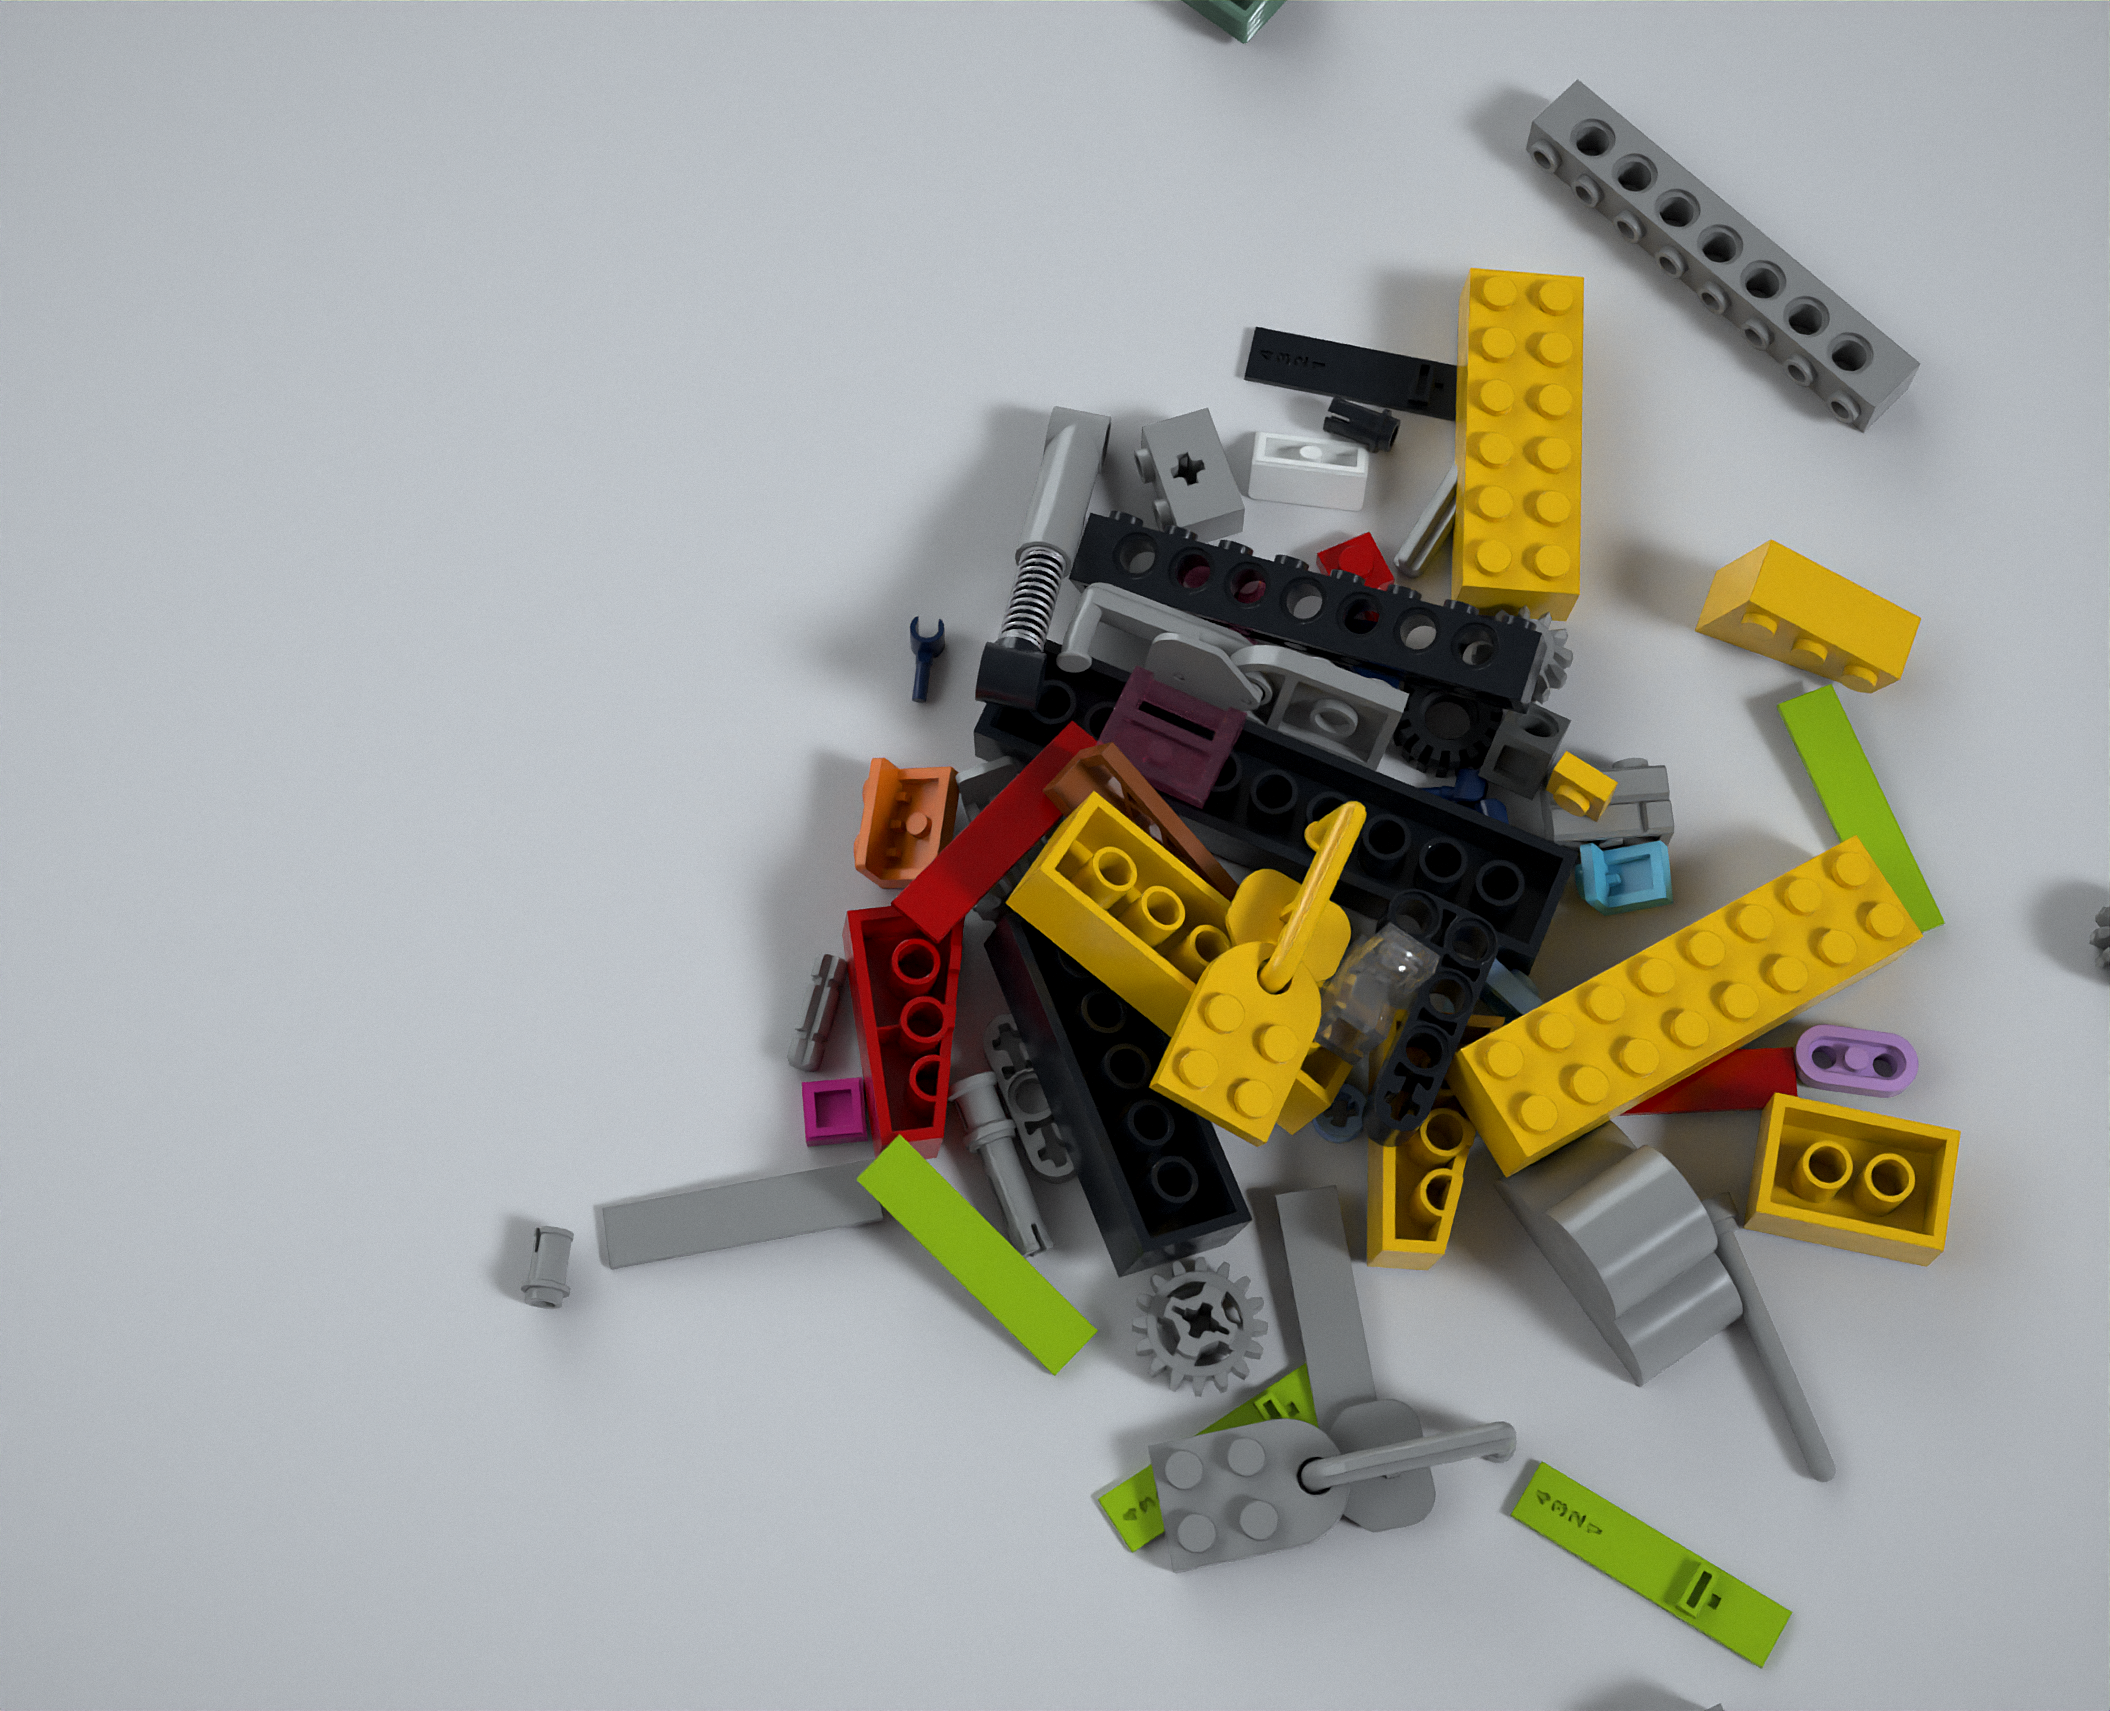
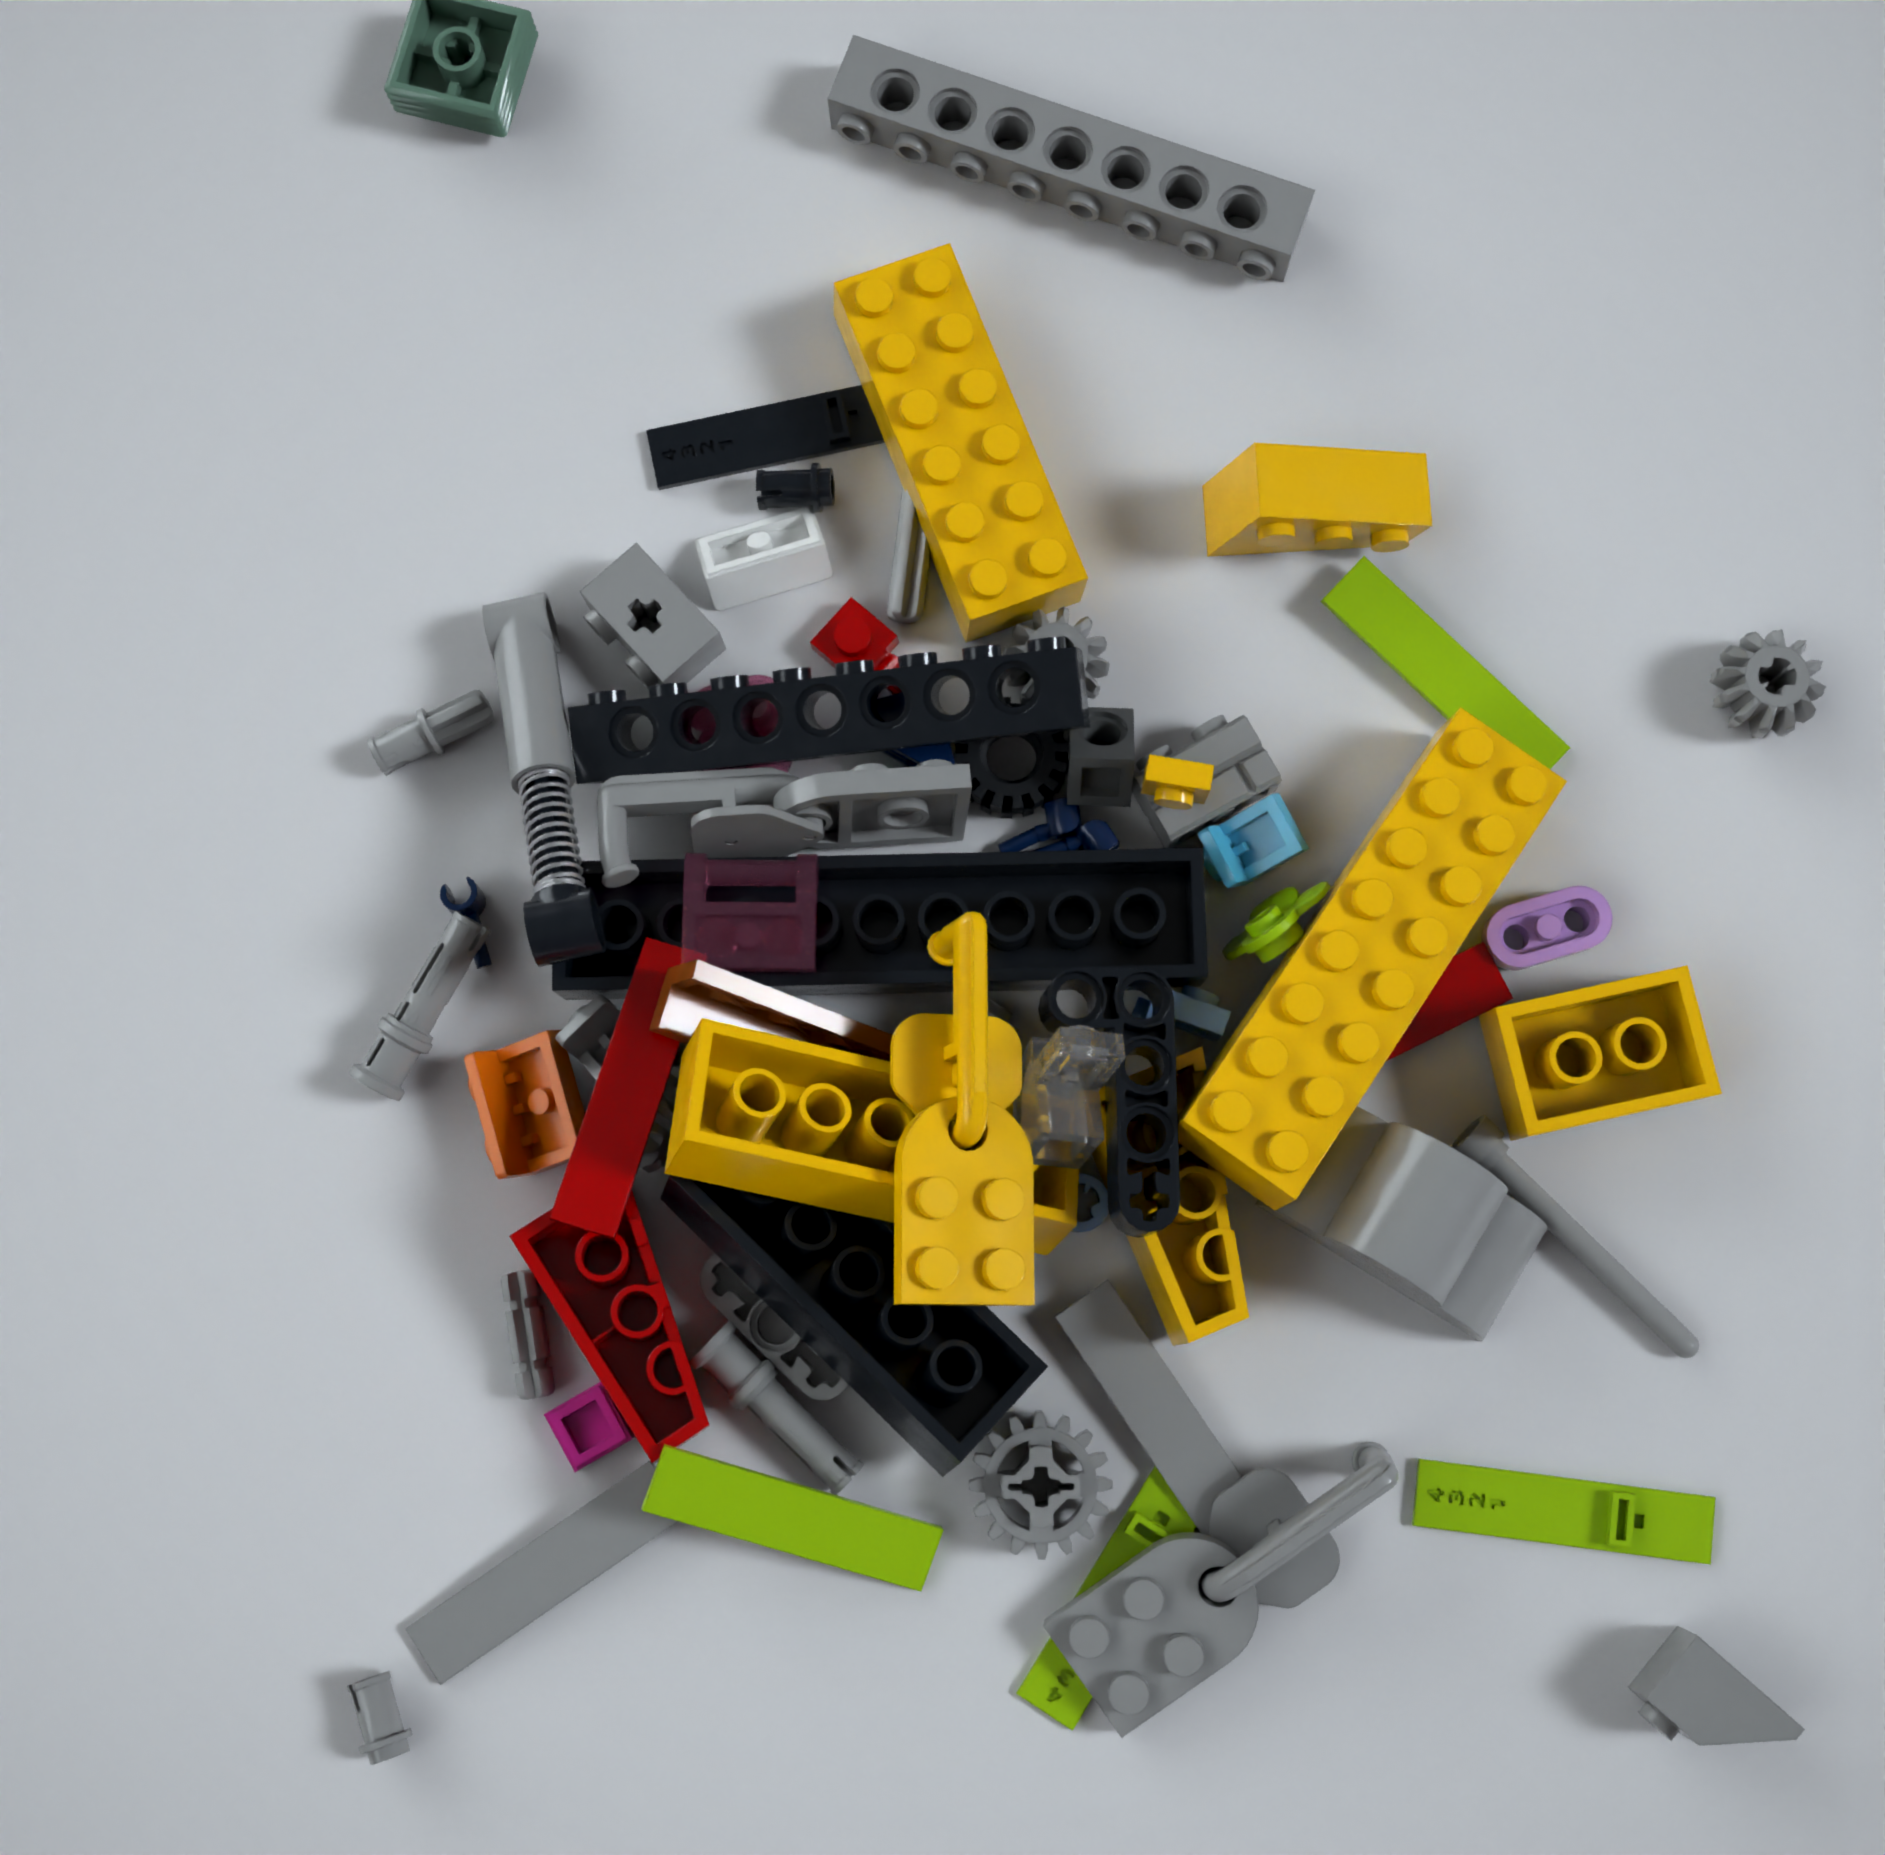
camera: 20 degrees left, 10 degrees up
(832, 720) = (408, 1029): none -> light grey pin
(963, 490) = (430, 731): none -> light grey axle
(1611, 946) = (1274, 923): none -> lime plate

